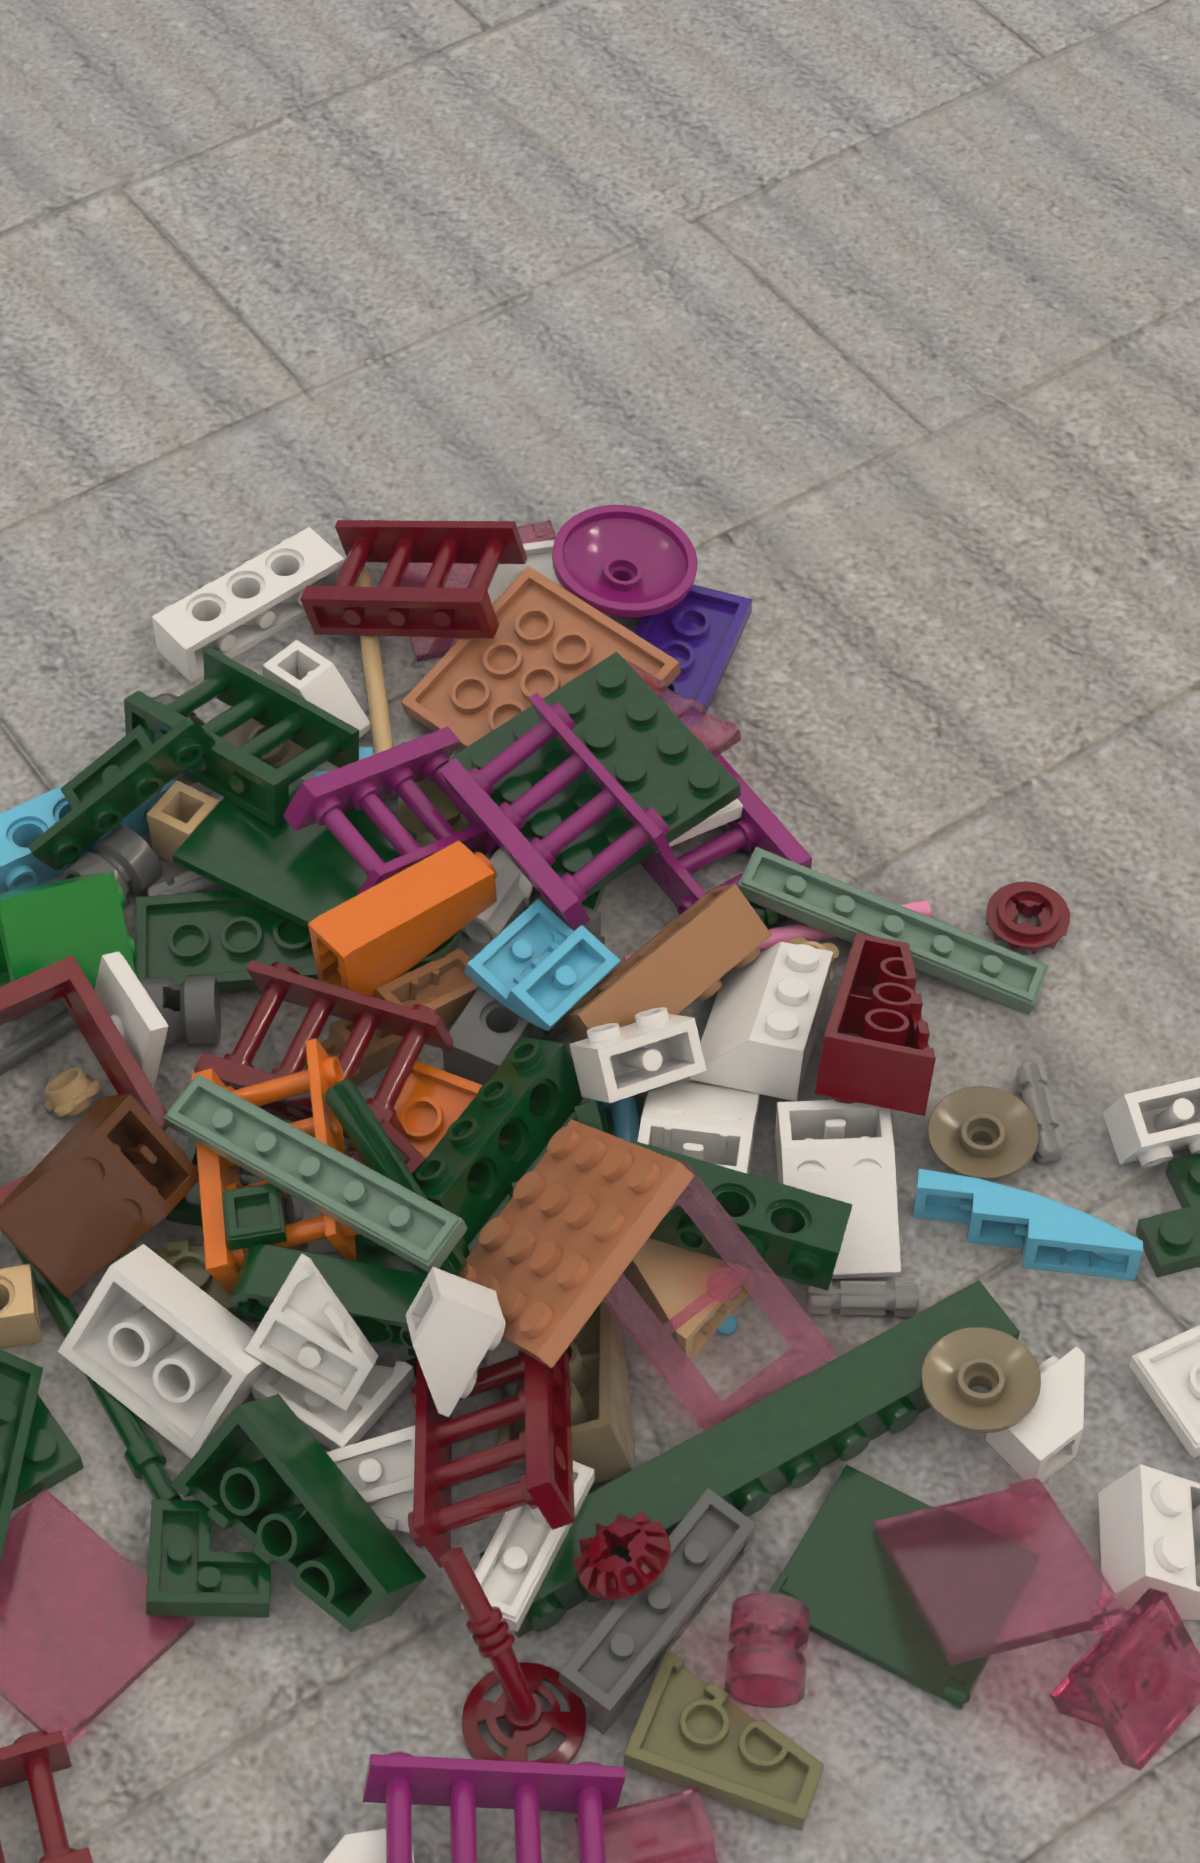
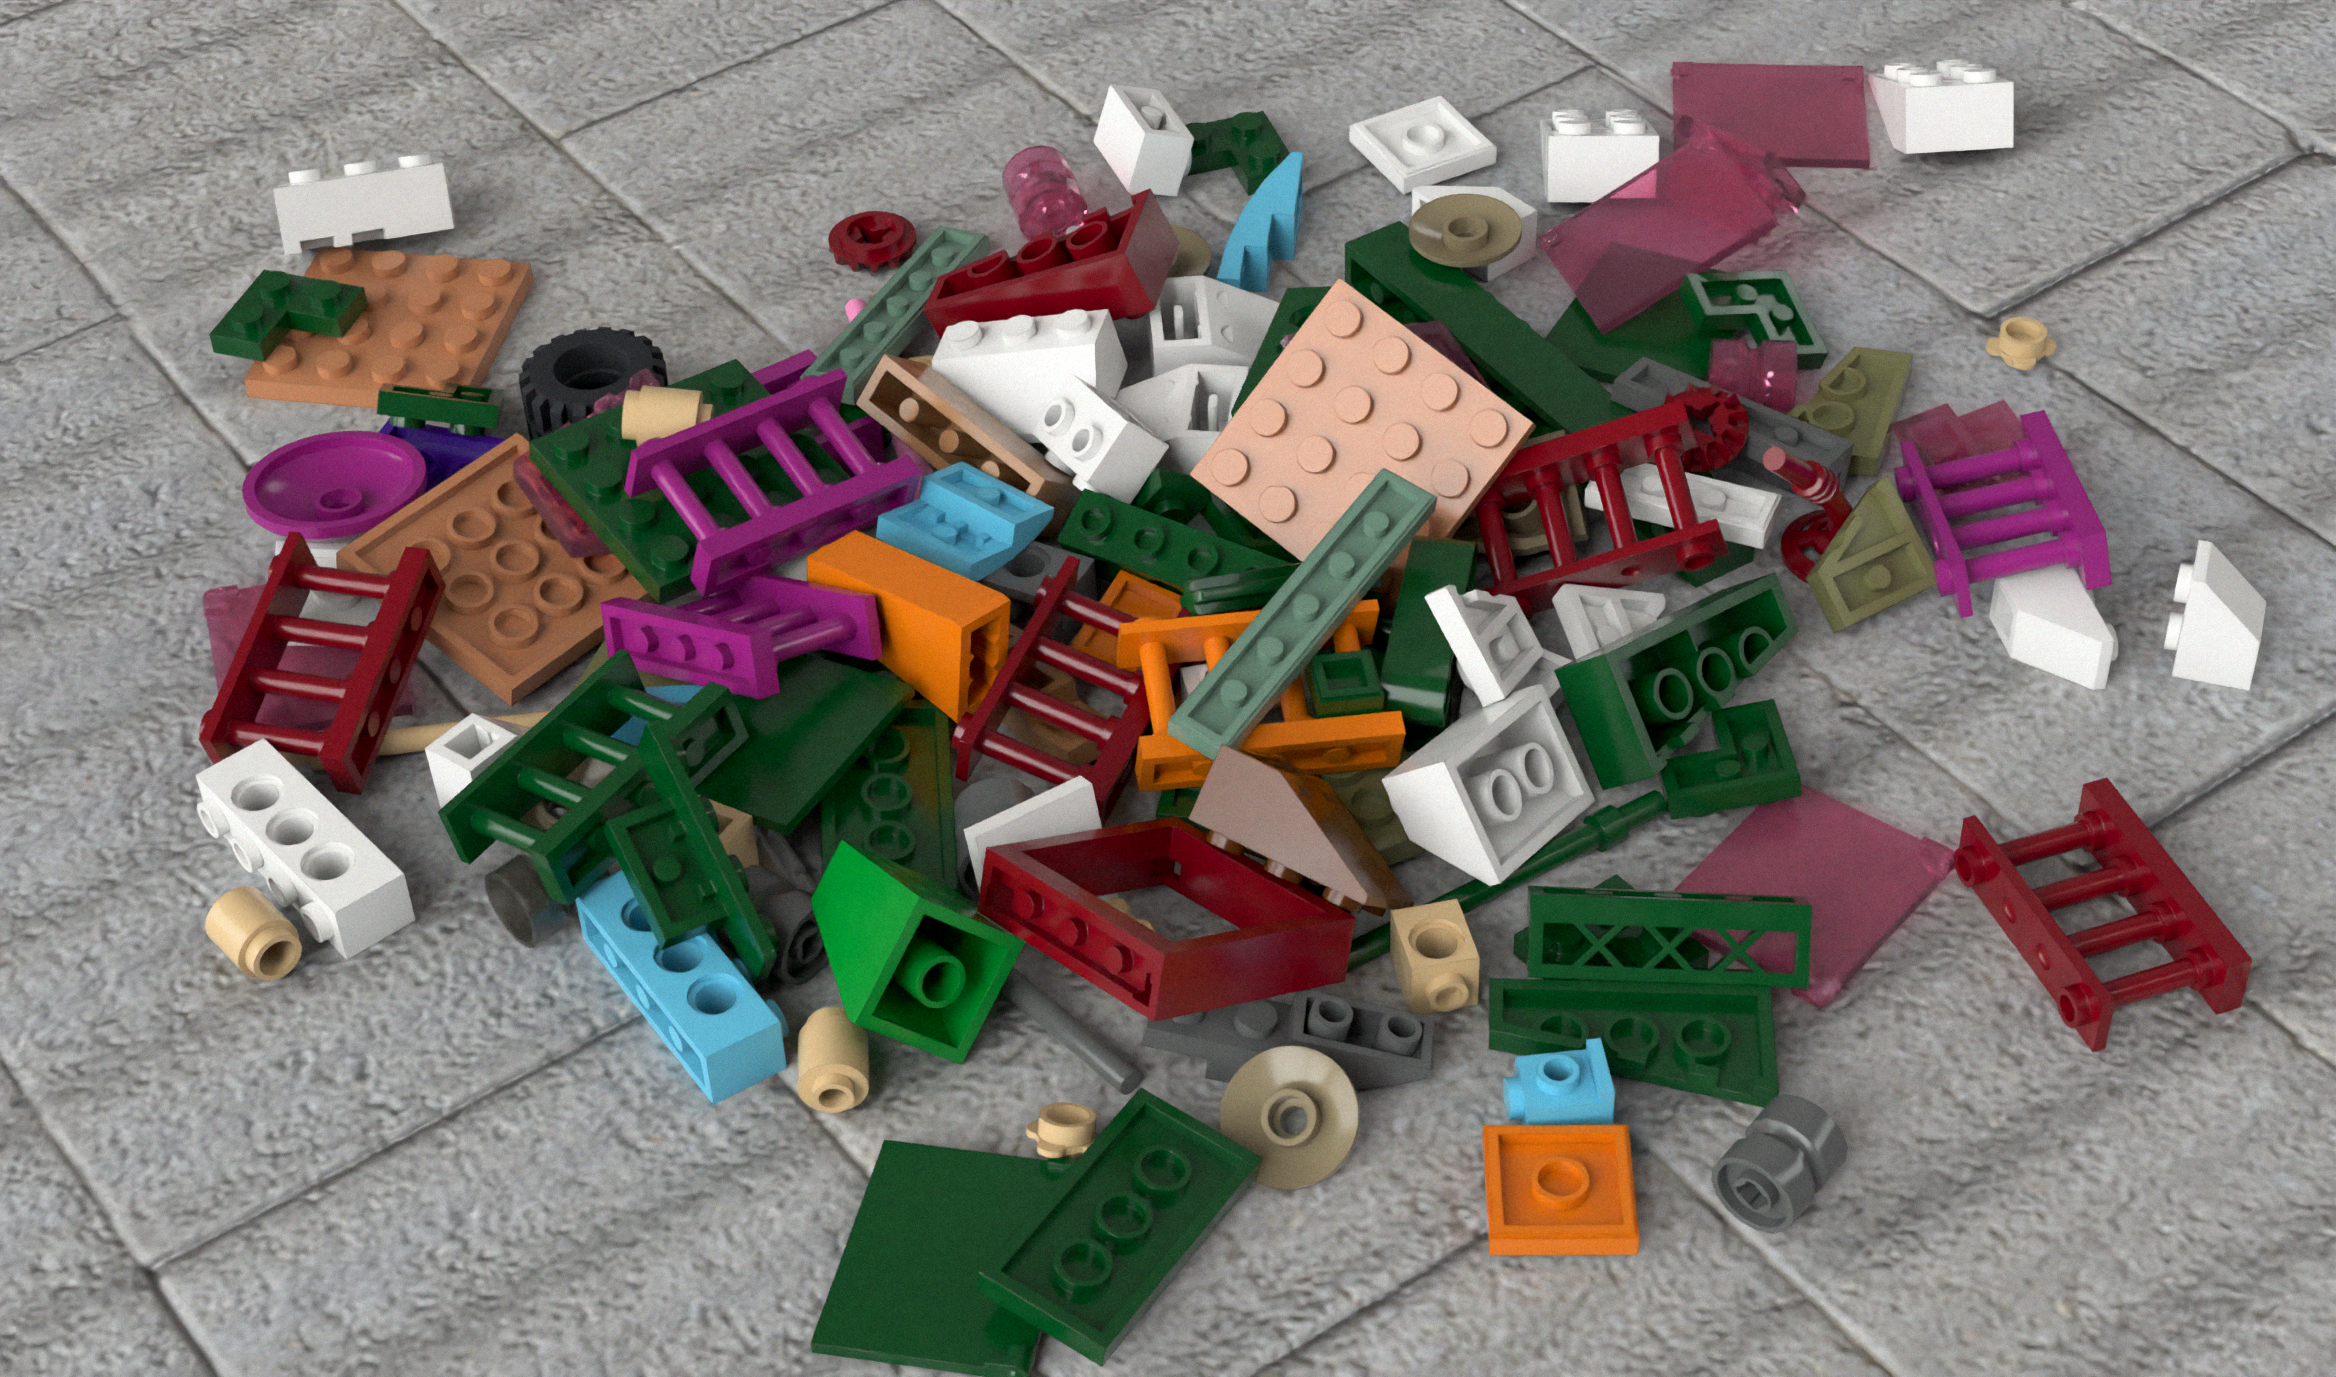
camera: 90 degrees left, 10 degrees down
(164, 585) = (254, 934): none -> tan brick
(451, 1331) = (1498, 516): white slope -> none
(458, 1714) = (1871, 560): none -> olive wing
(613, 725) = (662, 412): none -> tan brick
(739, 634) = (463, 406): none -> dark green plate
(778, 698) = (579, 370): none -> black tyre
(891, 510) = (283, 303): none -> dark green plate
(893, 1681) = (1758, 302): none -> dark green plate
(896, 598) = (422, 328): none -> nougat plate
(1033, 540) = (363, 203): none -> white wedge
(1089, 1039) = (1043, 192): none -> clear pink wheel

